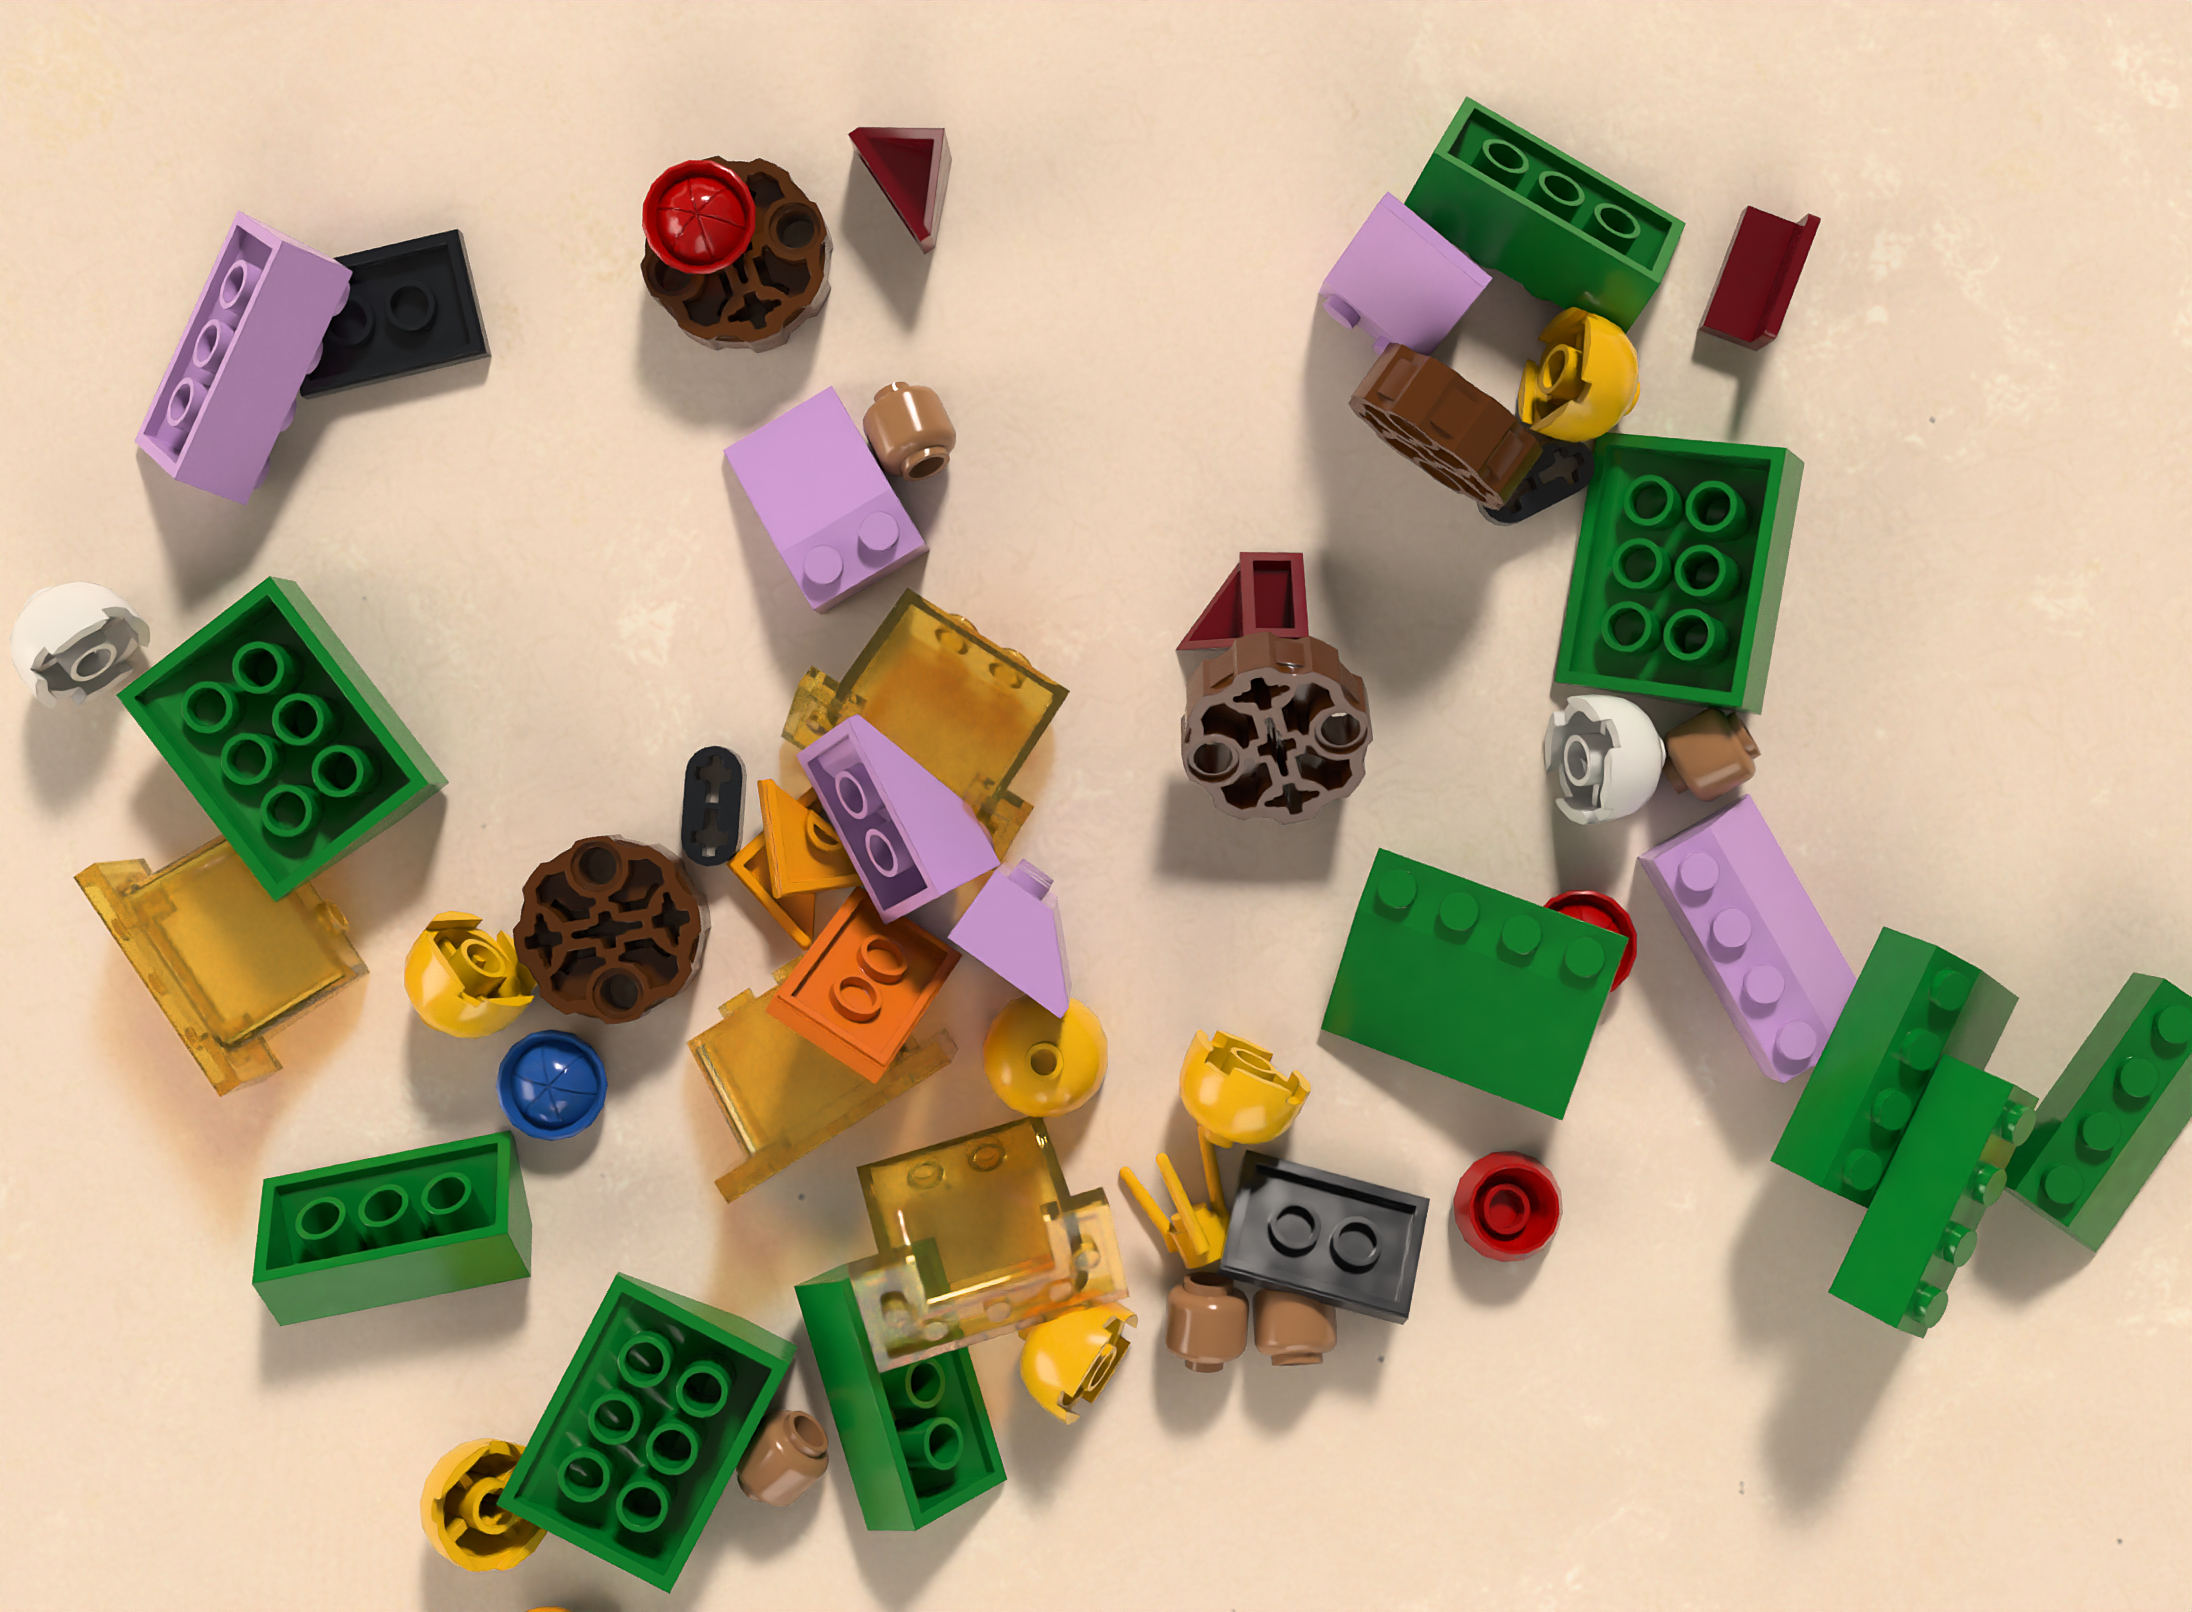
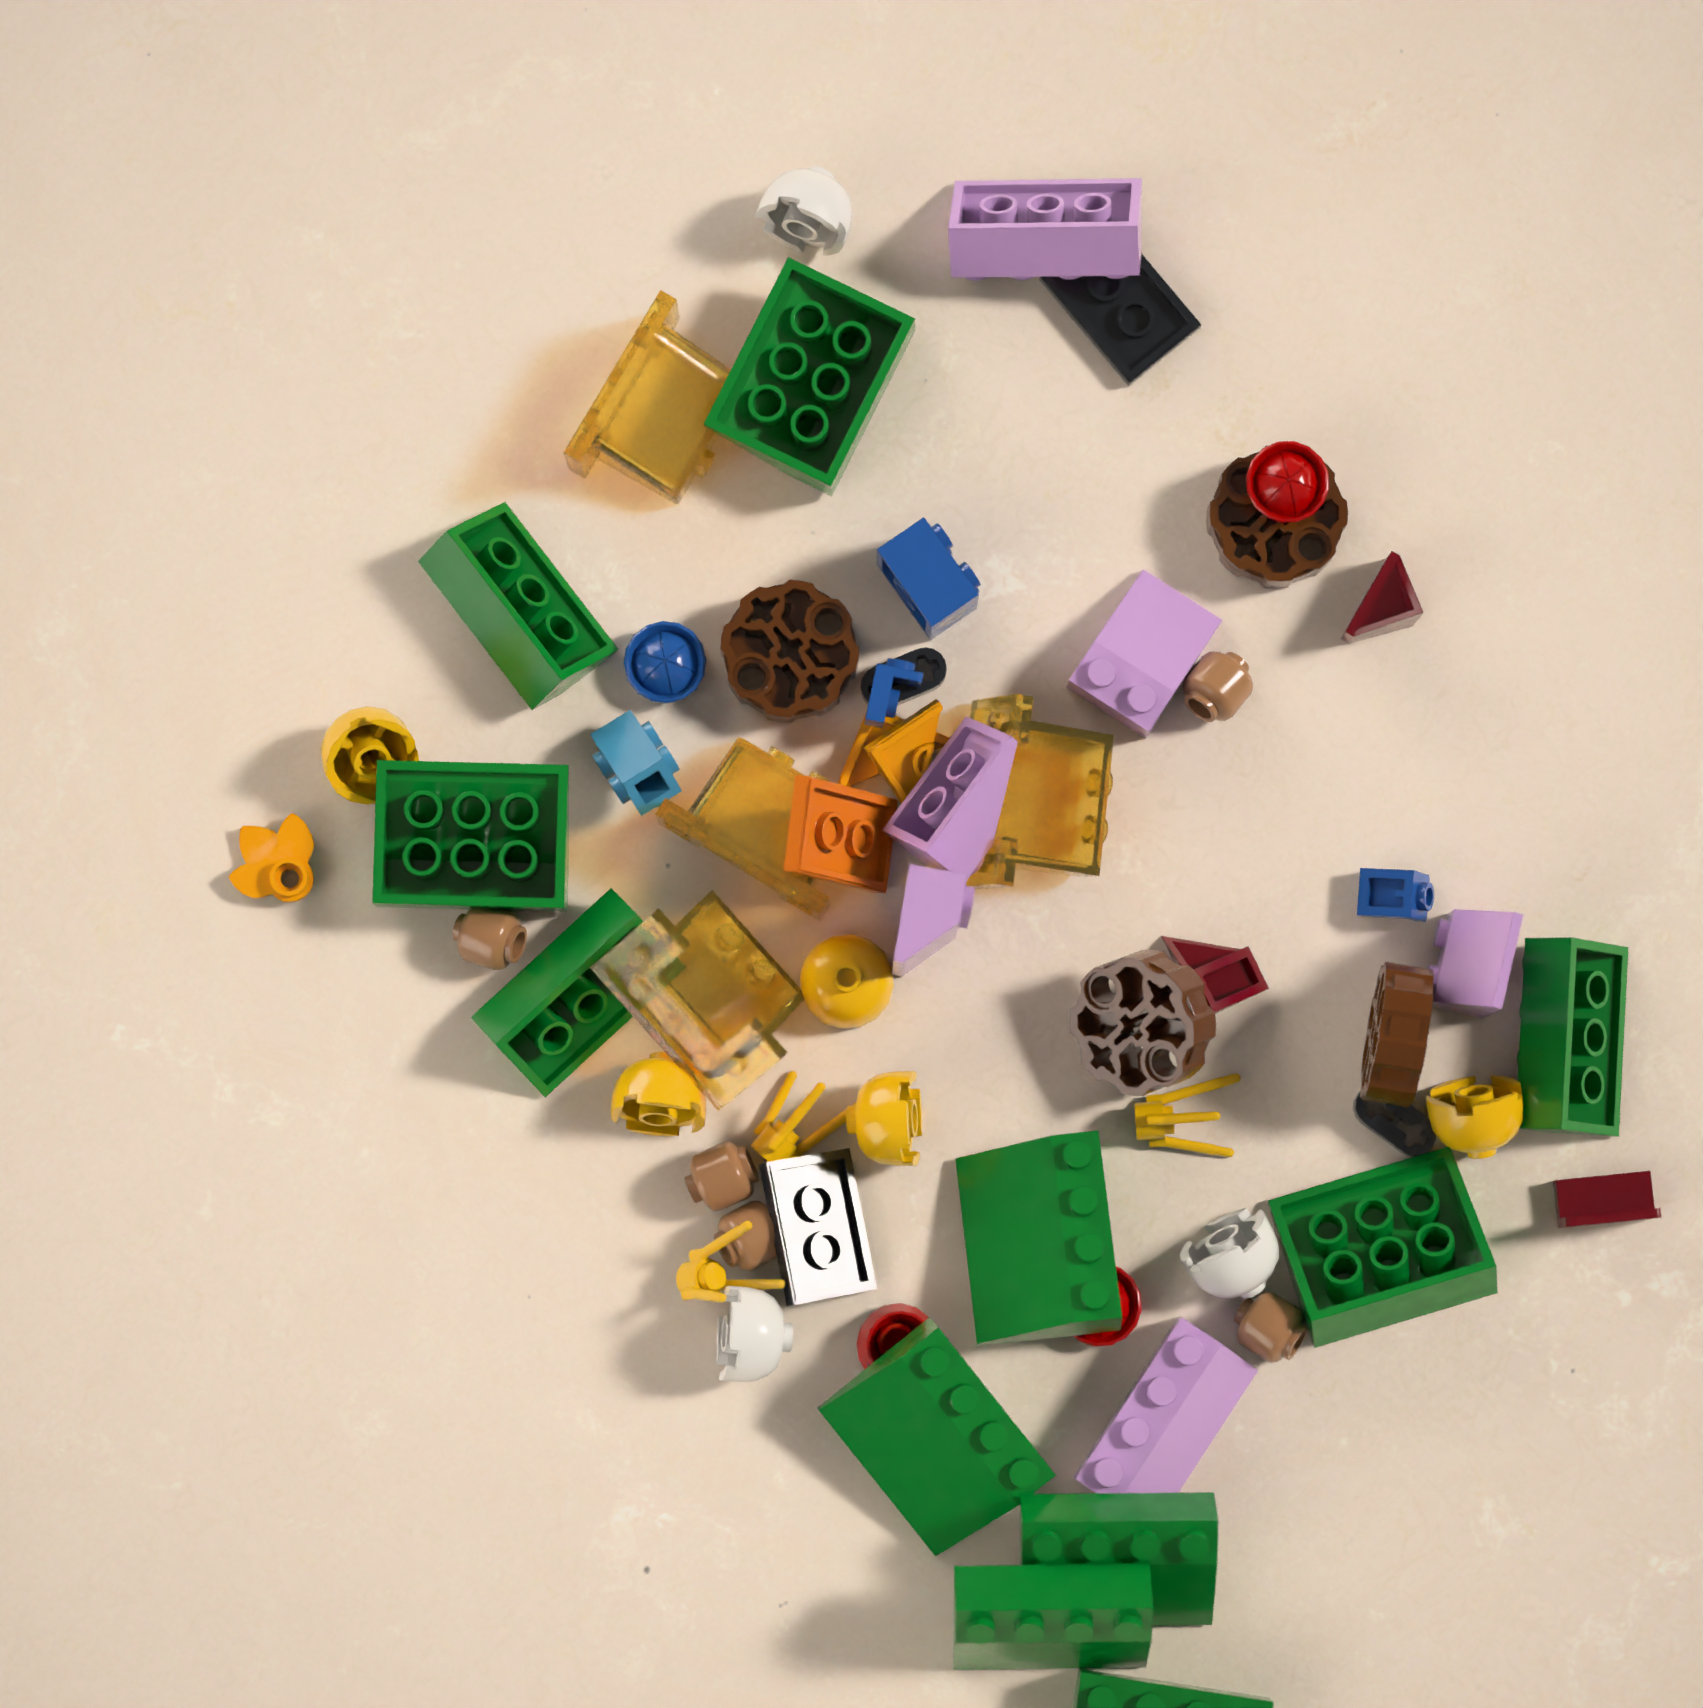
camera: 60 degrees right, 5 degrees down
(465, 978) = (707, 571): yellow cylinder -> none
(603, 718) = (928, 577): none -> blue brick
(655, 1186) = (638, 767): none -> dark azure brick
(723, 847) = (883, 699): none -> blue bracket
(1266, 344) = (1394, 894): none -> blue bracket
(1317, 1400) = (705, 1278): none -> yellow plant
(1397, 766) = (1156, 1120): none -> yellow plant
(1416, 1380) = (751, 1335): none -> white cylinder
(1646, 1219) = (935, 1439): none -> green slope

